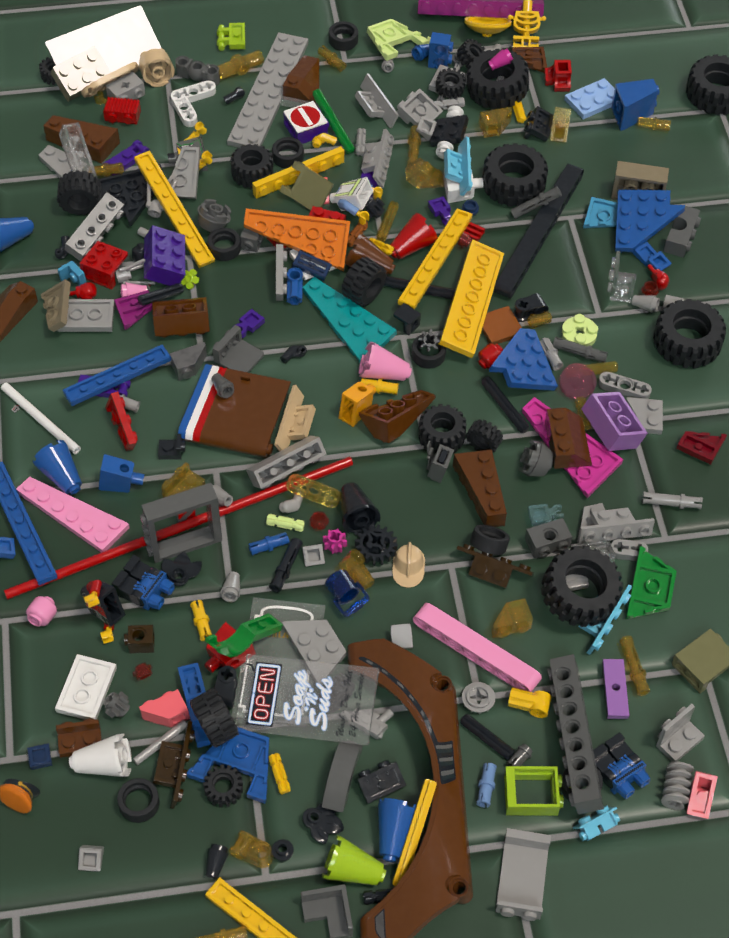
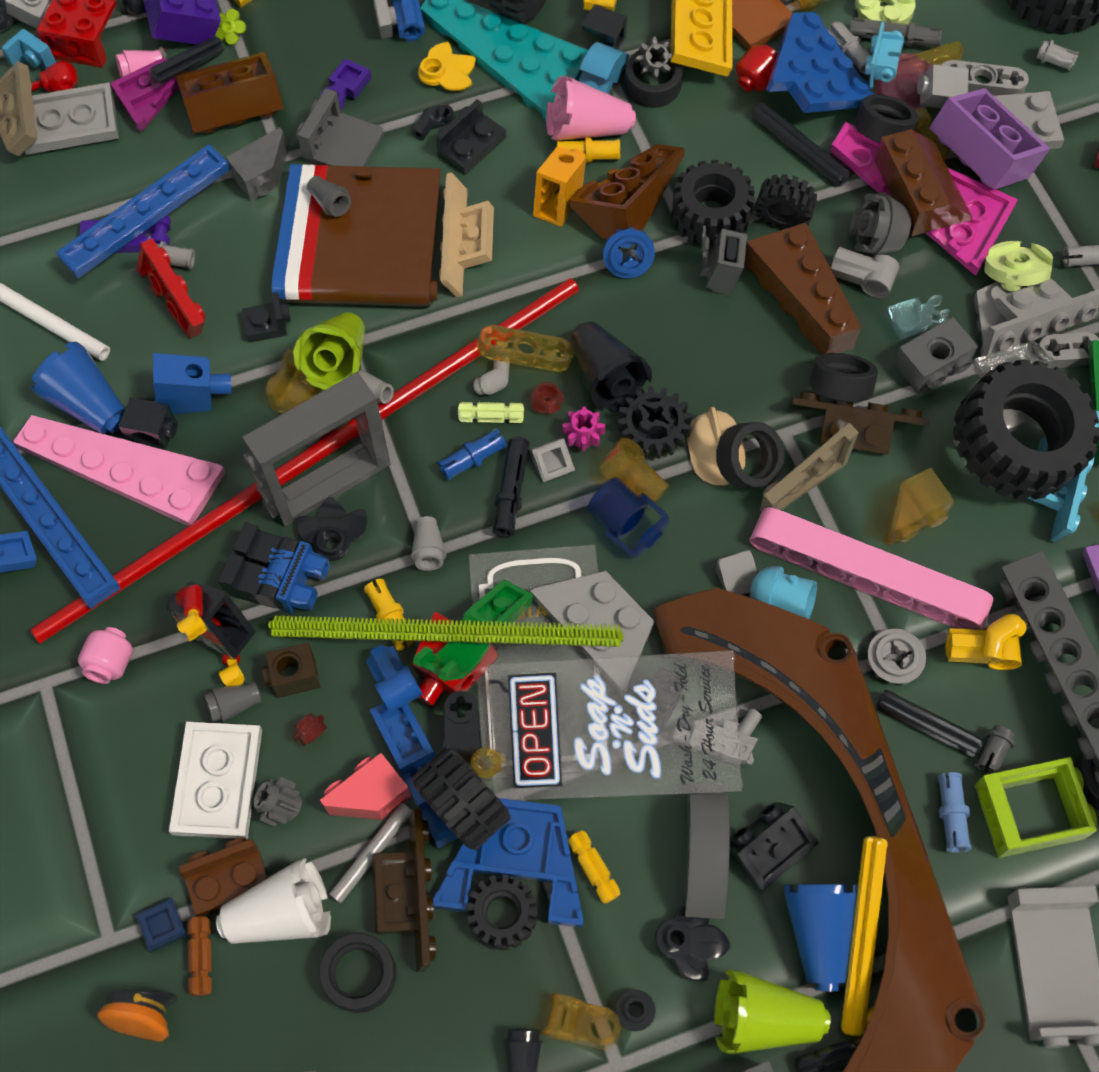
camera: 10 degrees left, 10 degrees up
(56, 775) = (199, 956): none -> dark orange axle
(92, 492) = (148, 423): none -> black brick
(103, 648) = (229, 701): none -> dark grey cone
(123, 274) = (117, 36): light grey plant -> none
(193, 652) = (393, 680): none -> blue piece
(202, 469) = (330, 350): none -> lime cone
(226, 631) = (434, 632): none -> lime axle
(236, 709) = (481, 768): none -> clear yellow pin
(286, 461) = (467, 307): light grey brick -> none
(309, 324) = (446, 68): none -> yellow plate
(312, 367) = (469, 138): none -> black bracket
(386, 456) = (629, 266): none -> blue gear
(398, 340) = (603, 67): none -> dark azure brick
(424, 648) = (784, 591): none -> medium azure piece
(438, 572) = (728, 455): none -> black tyre
(459, 587) = (812, 471): none -> dark tan wing
(525, 486) = (873, 274): none -> light grey piece
(535, 693) = (1000, 631): none -> yellow arm
(557, 397) = (884, 116): none -> black tyre
(566, 362) = (886, 52): none -> medium azure hinge
(595, 384) = (941, 83): none -> light grey brick
(611, 496) = (1018, 265): none -> yellowish green plate
(673, 380) = (1057, 55): none -> light grey pin

